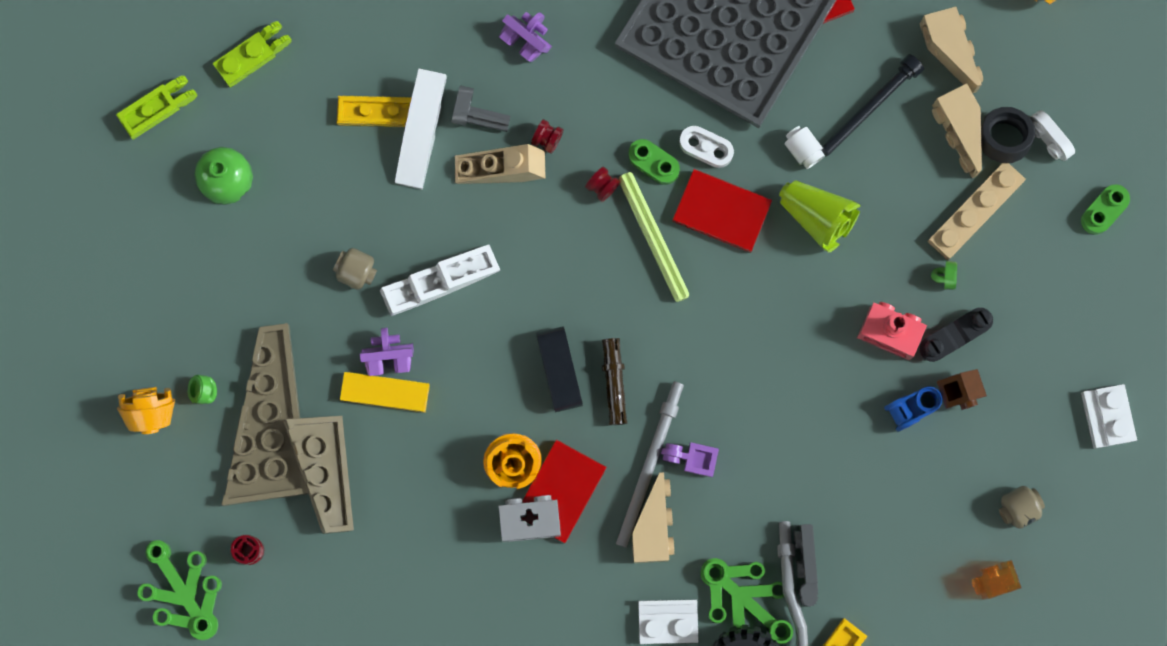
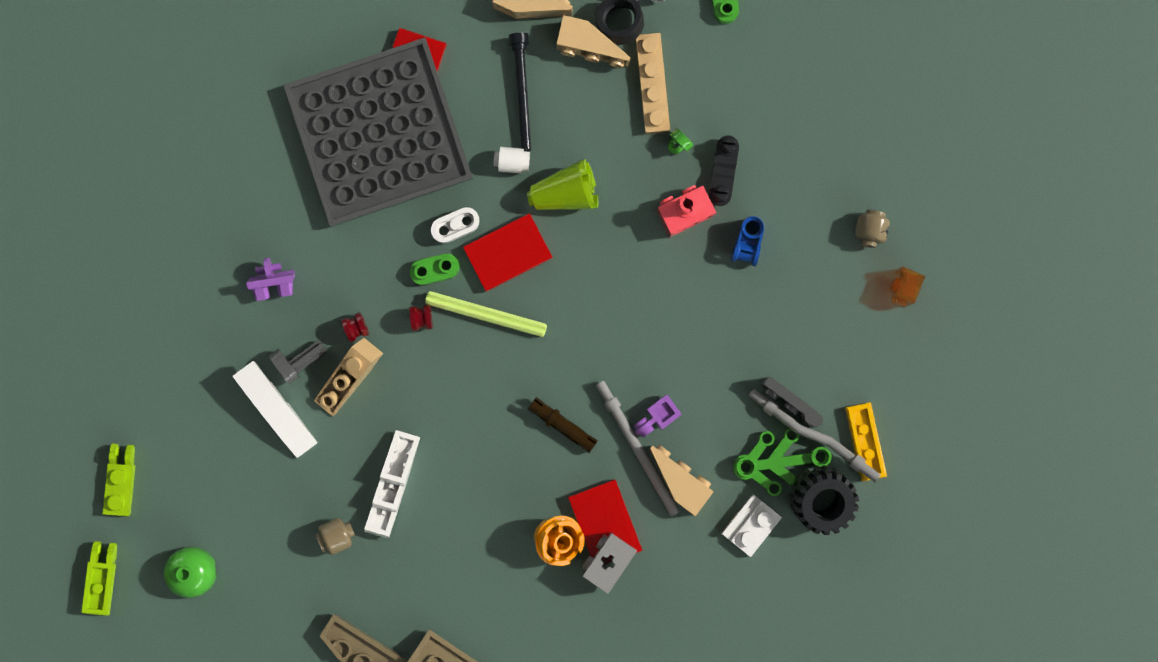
camera: 60 degrees left, 5 degrees up
(373, 111) = (233, 430): yellow tile -> none
(374, 356) = (408, 562): medium lavender hips -> none
(384, 392) = (437, 586): yellow tile -> none
(559, 369) = (522, 455): black beam -> none
(962, 389) = (764, 199): reddish brown brick -> none
(1109, 416) = (861, 118): white plate -> none

